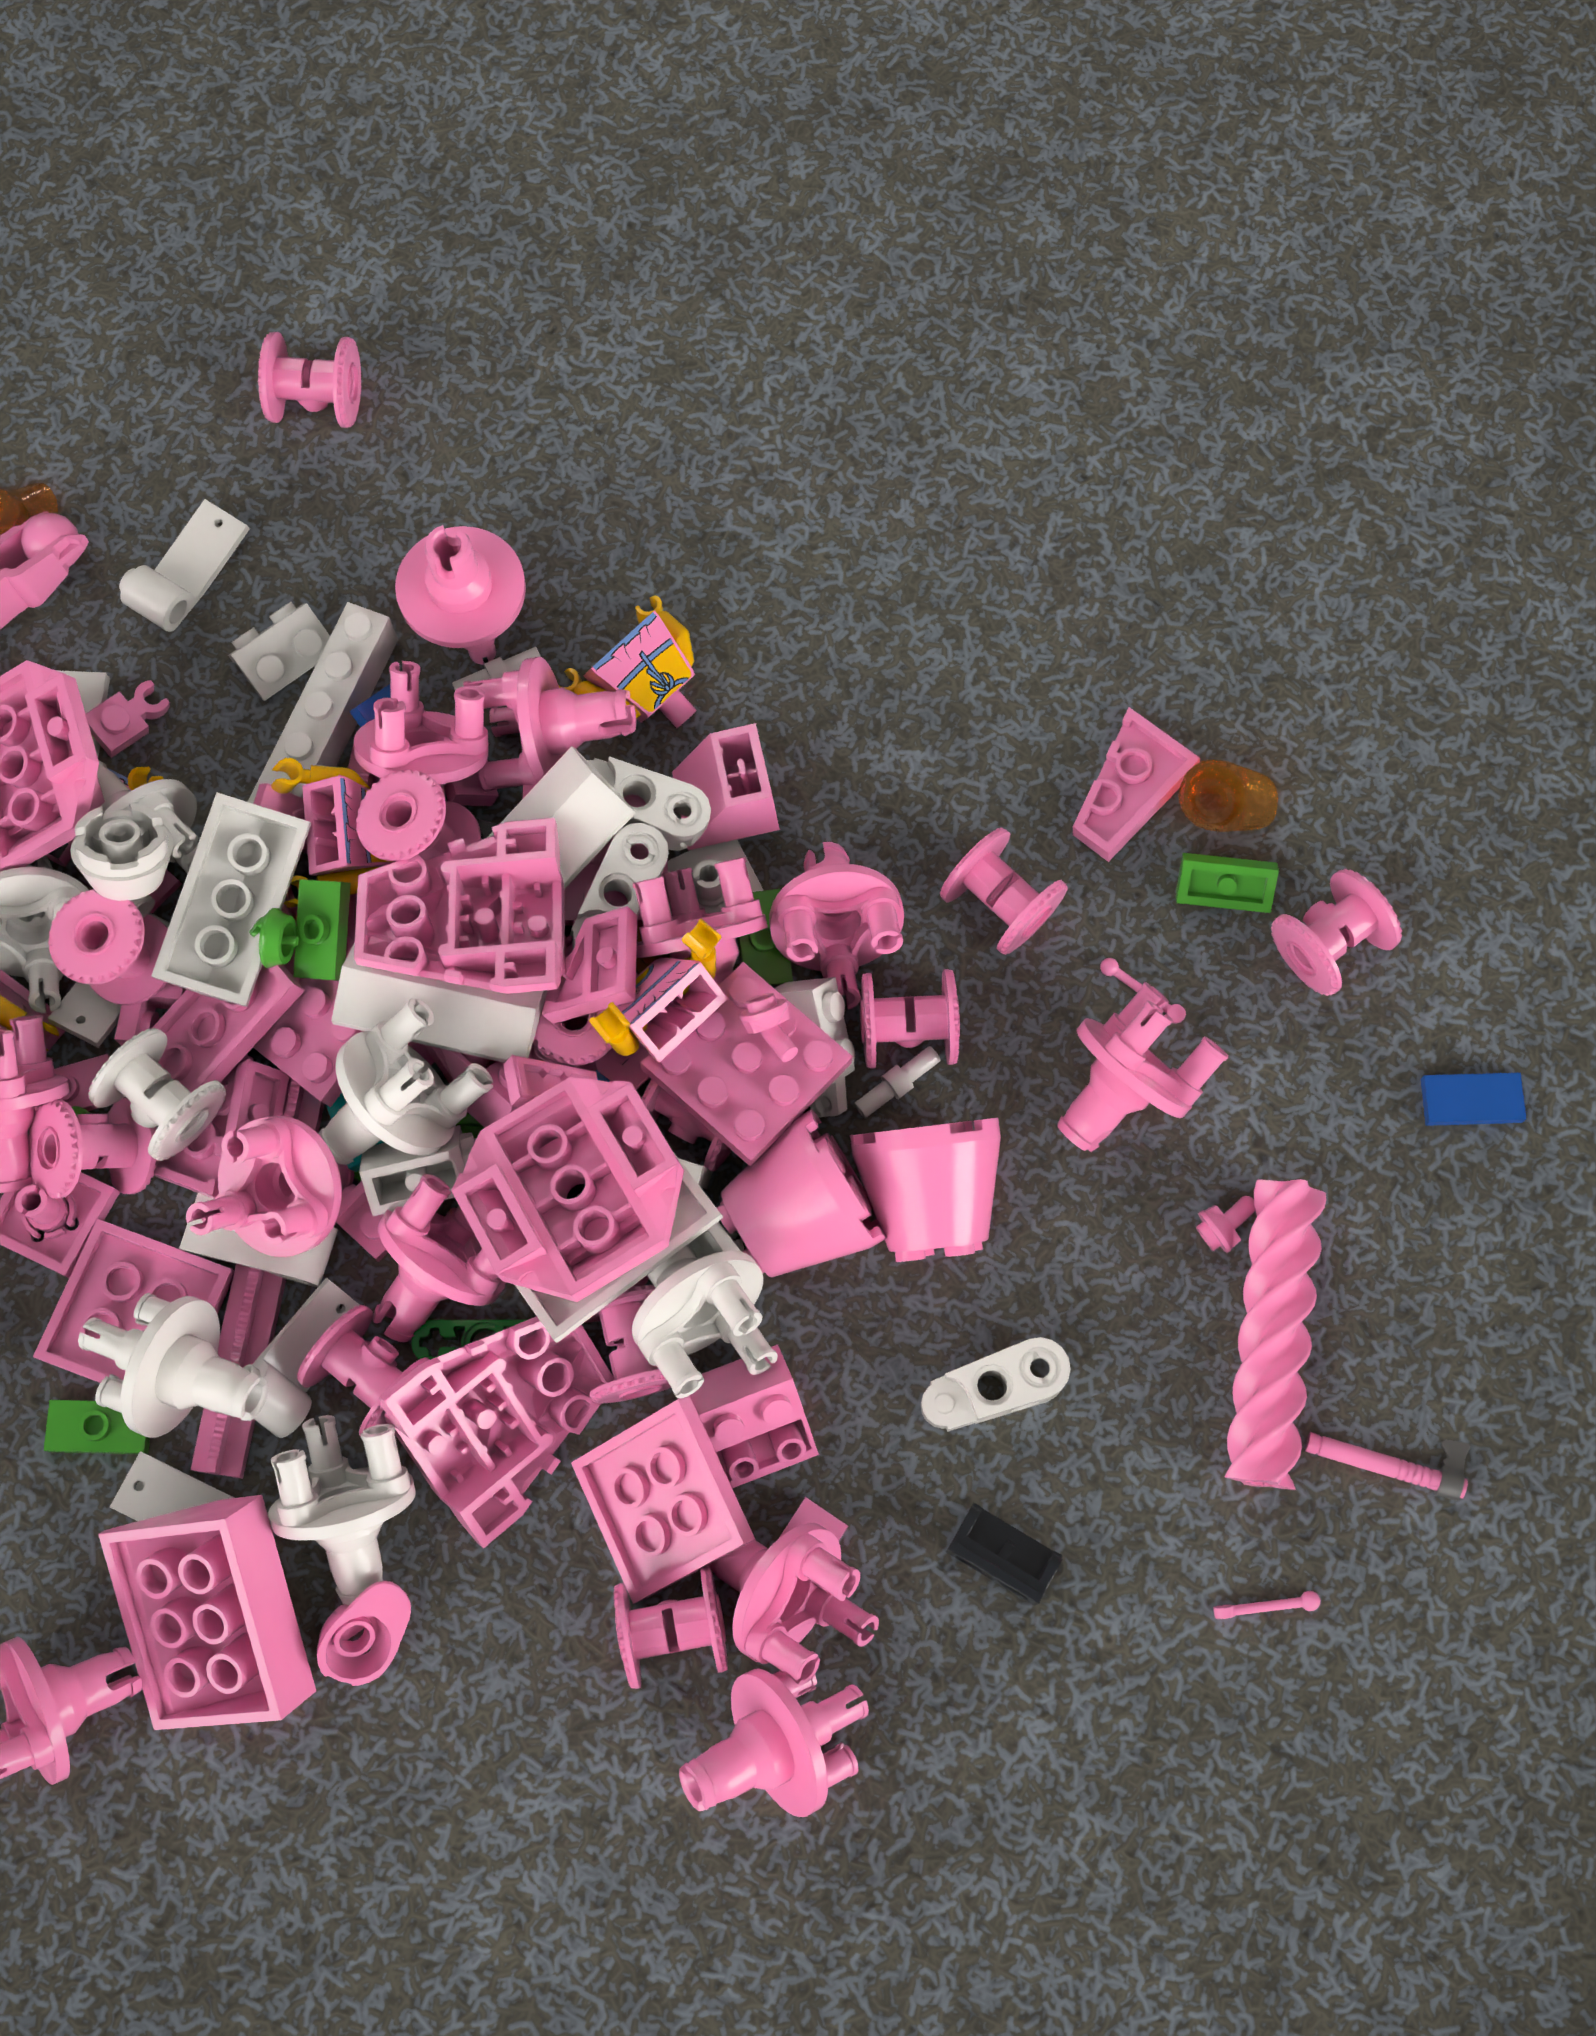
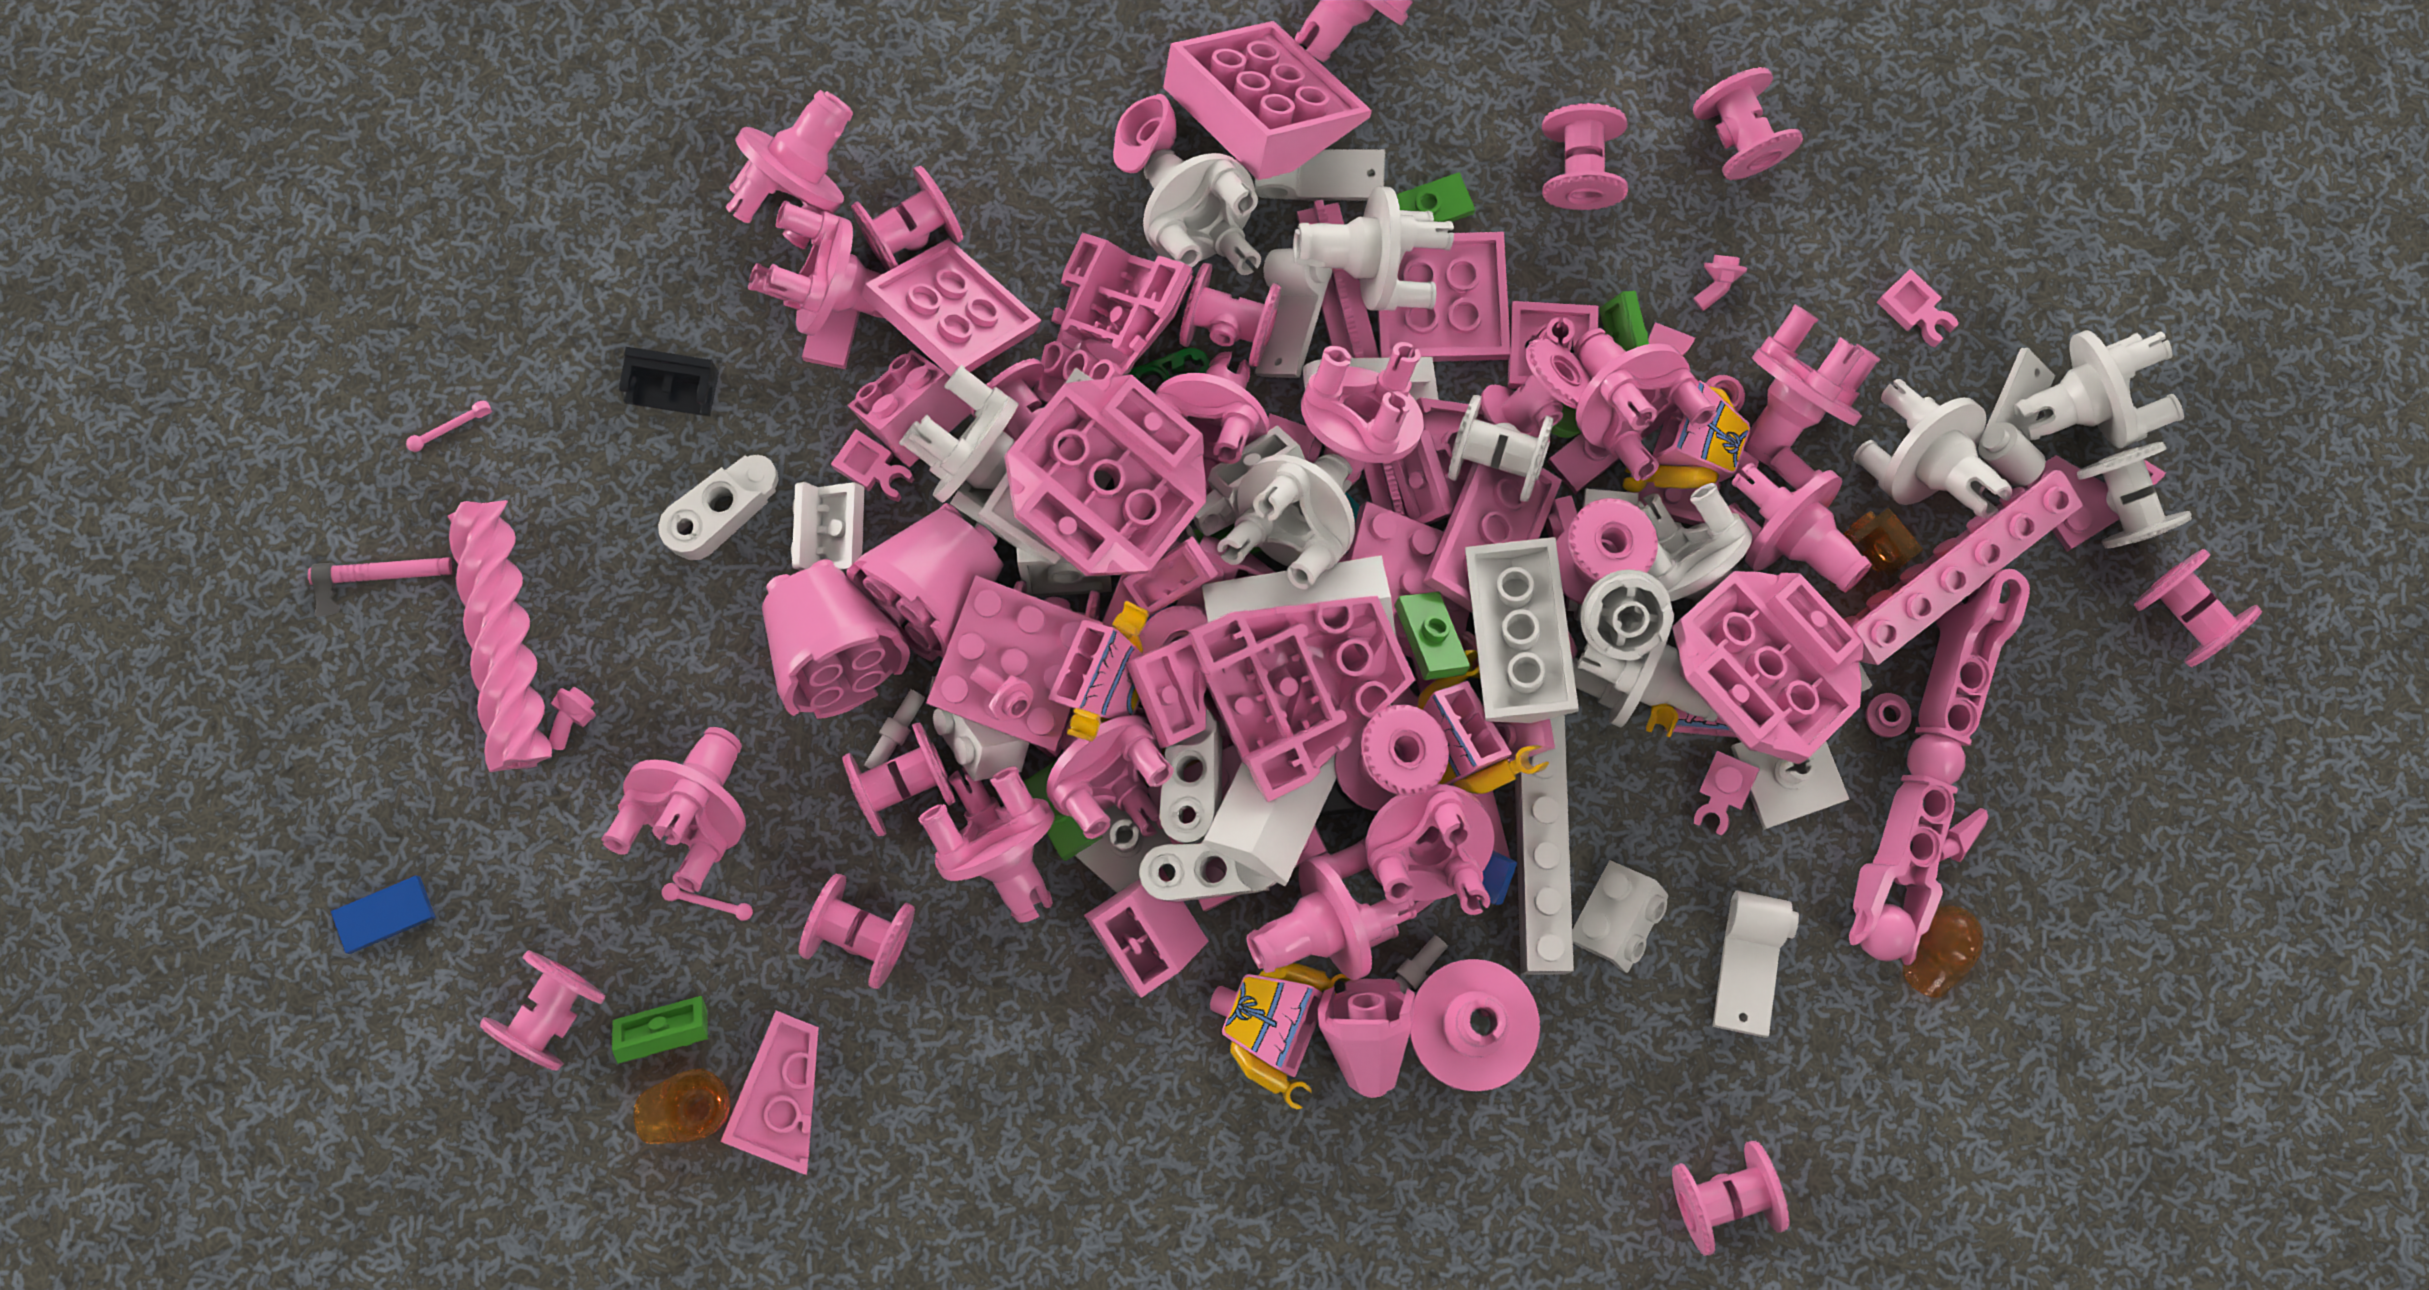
camera: 155 degrees right, 5 degrees up
(276, 938) = (1463, 606): bright green hat -> none
(556, 623) = (1368, 1032): none -> bright pink cone
(822, 1373) = (868, 463): none -> bright pink plate
(887, 1315) = (827, 524): none -> white bracket

